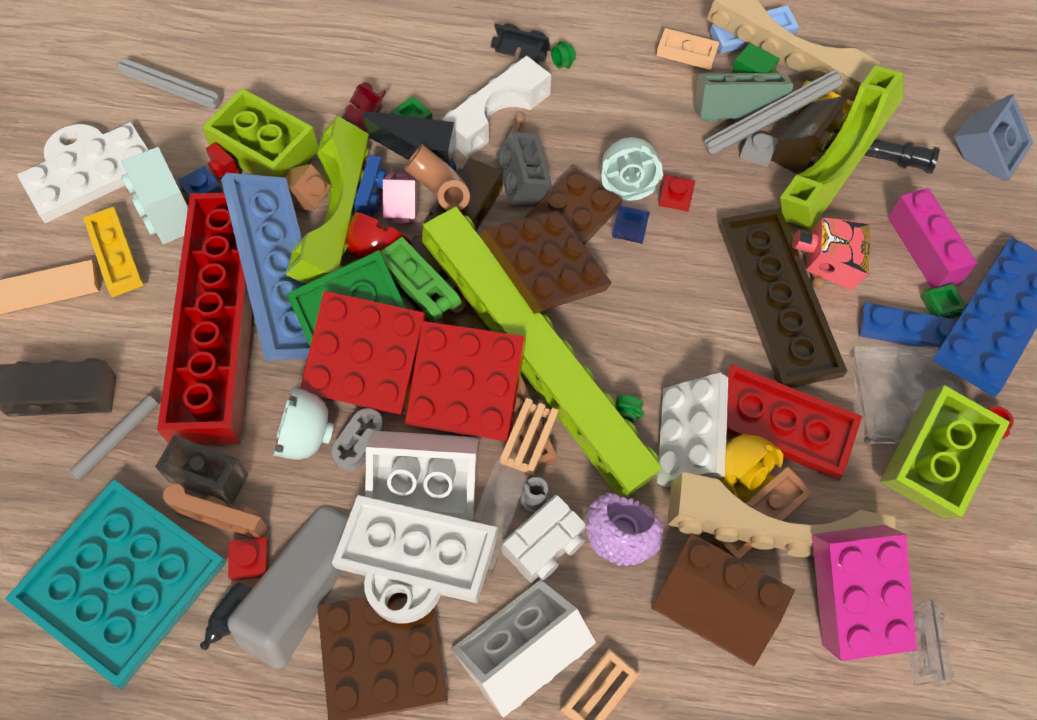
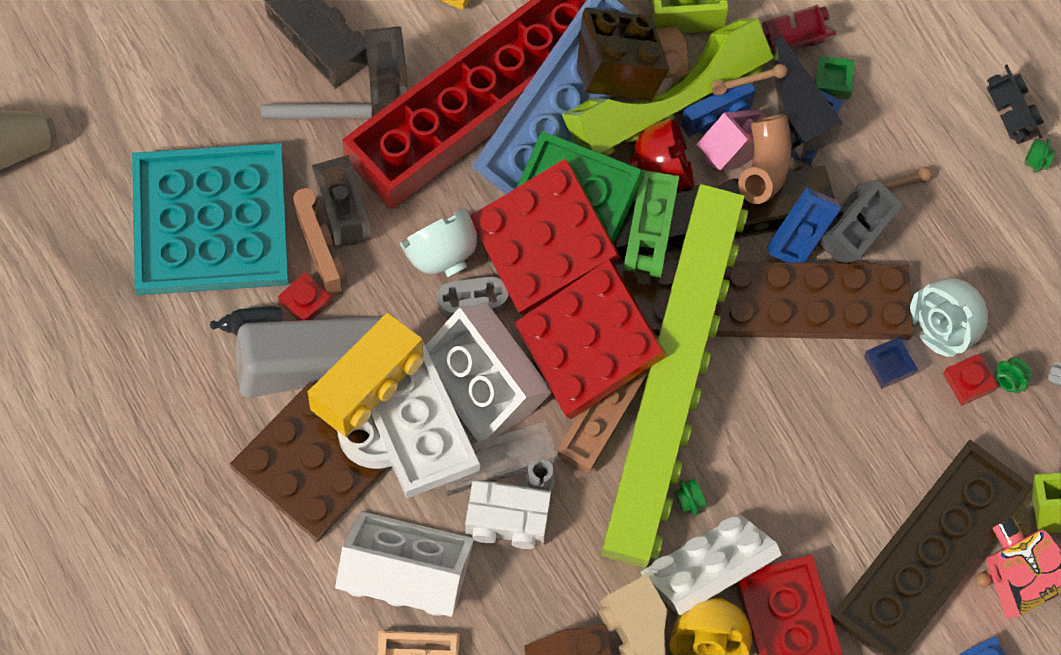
camera: 50 degrees right, 5 degrees up
(131, 358) = (386, 64): none -> clear smoke brick
(283, 203) = (620, 55): none -> dark brown slope
(358, 556) = (366, 375): none -> yellow brick
(360, 171) = (720, 86): none -> medium nougat hinge
(500, 194) = (803, 227): none -> blue plate
(520, 86) = (960, 144): white arch -> none
(539, 411) = (583, 417): light nougat tile -> none
(545, 260) = (767, 315): reddish brown plate -> none
(623, 530) = (566, 568): lavender hair -> none
(695, 167) = (1013, 375): none -> green plate

